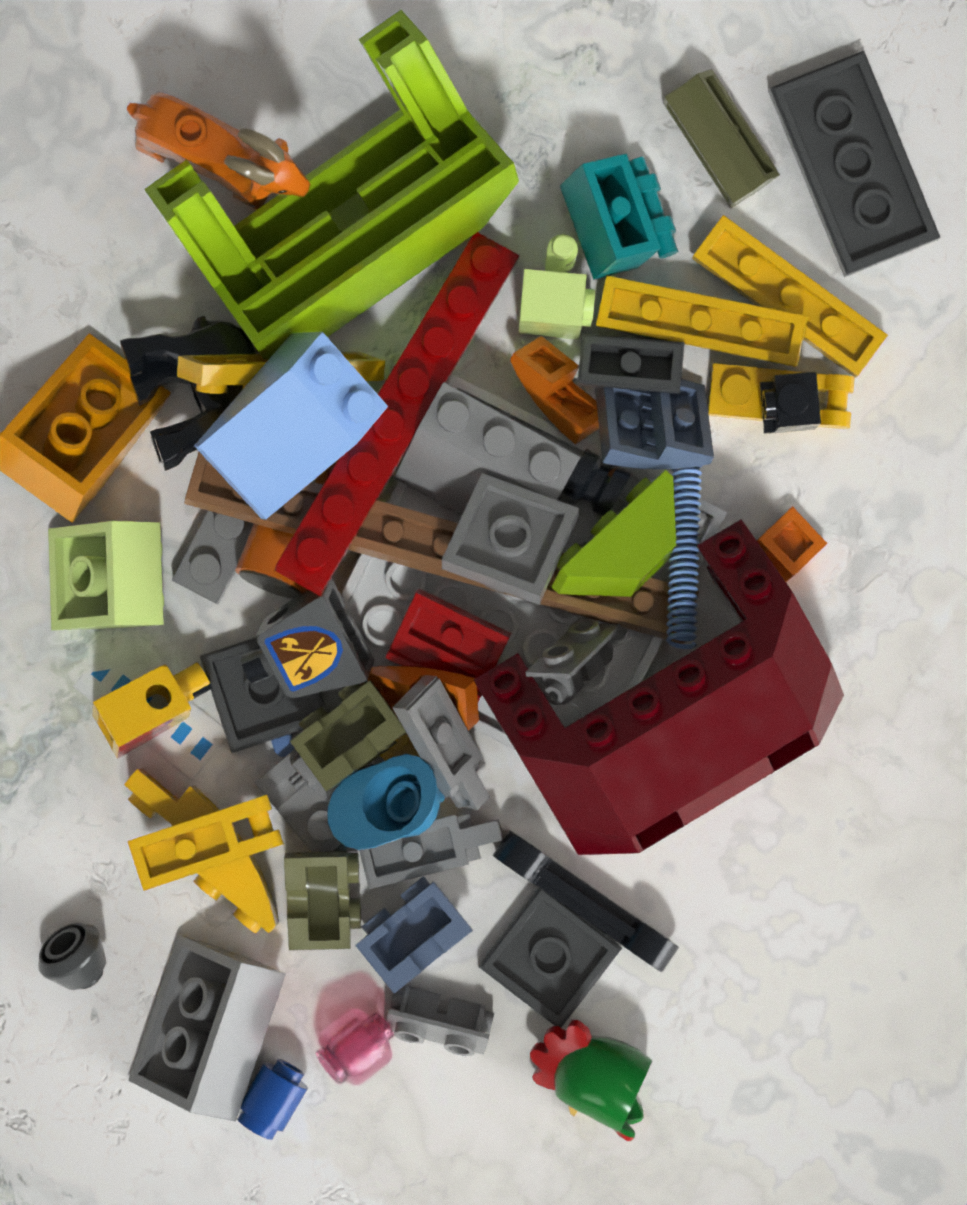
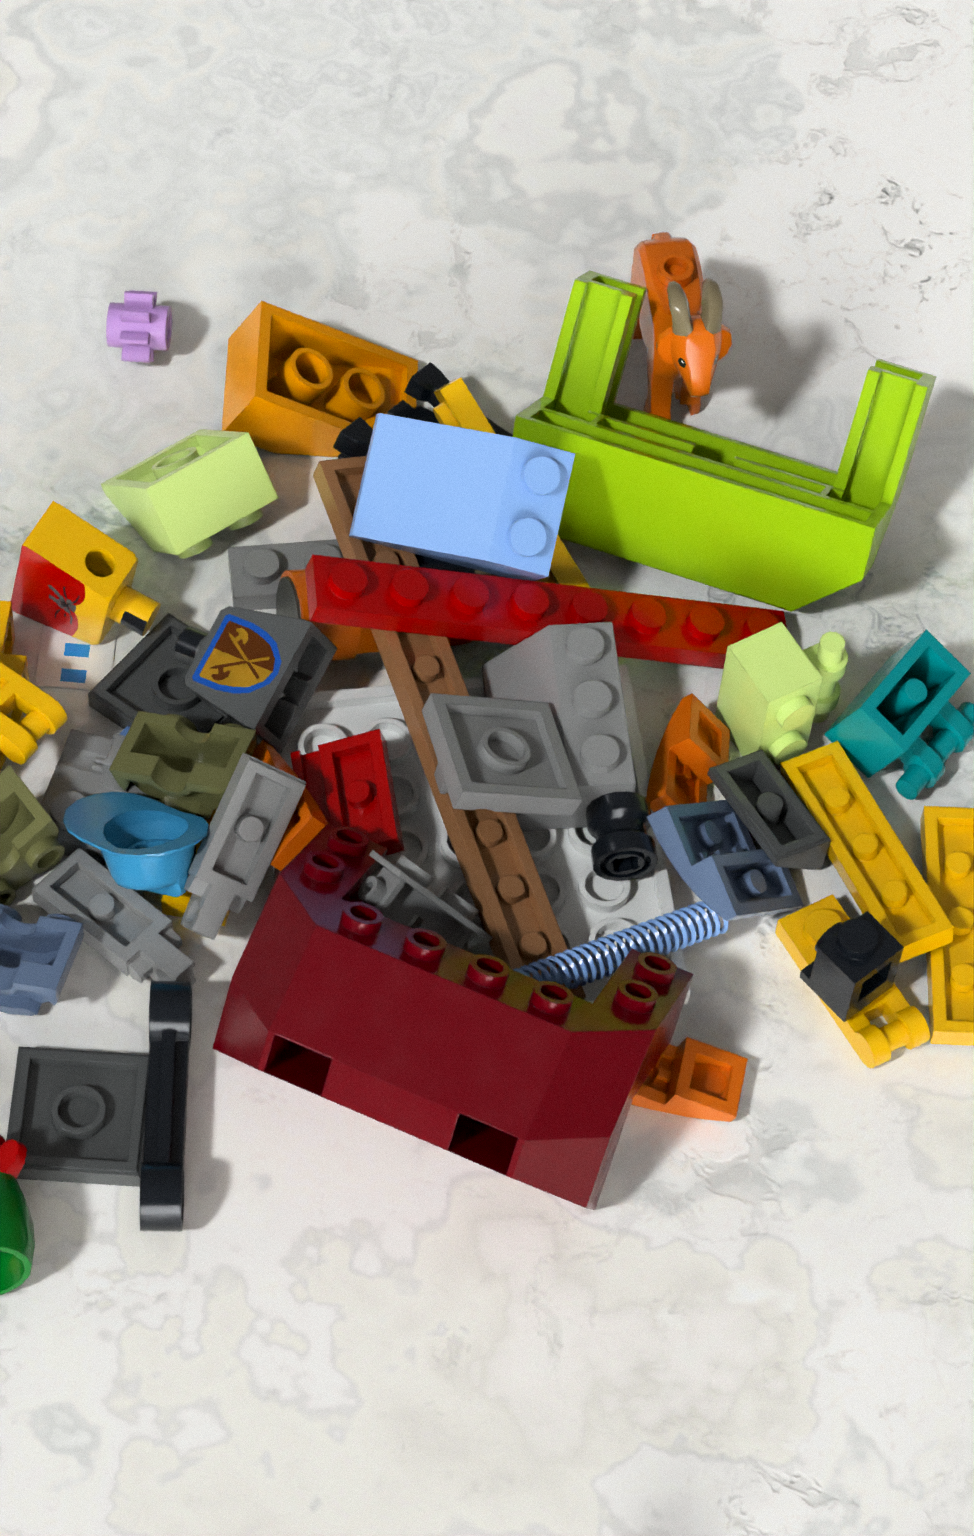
camera: 50 degrees right, 30 degrees down
(625, 545) = (574, 881): lime slope -> none

